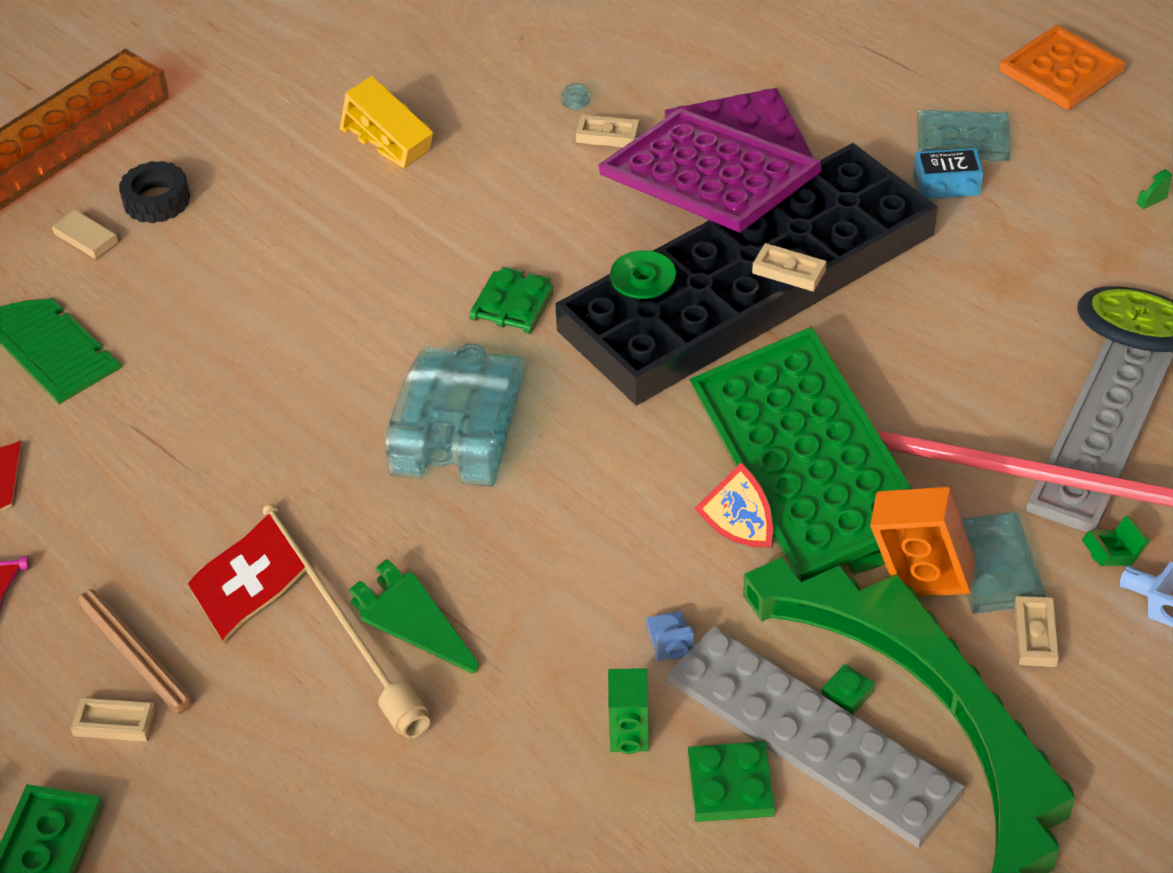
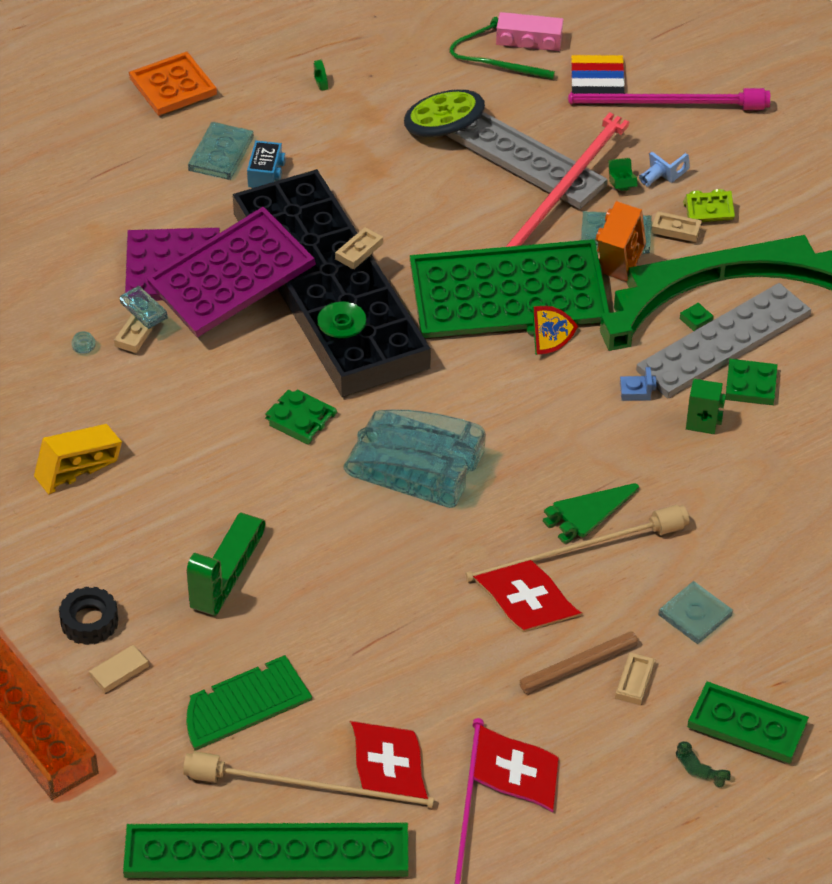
camera: 80 degrees left, 0 degrees up
(232, 280) = (213, 578): none -> green beam
(243, 774) = (695, 612): none -> clear light blue tile
(632, 119) = (143, 307): none -> clear light blue plate
(1099, 666) = (710, 206): none -> lime bracket

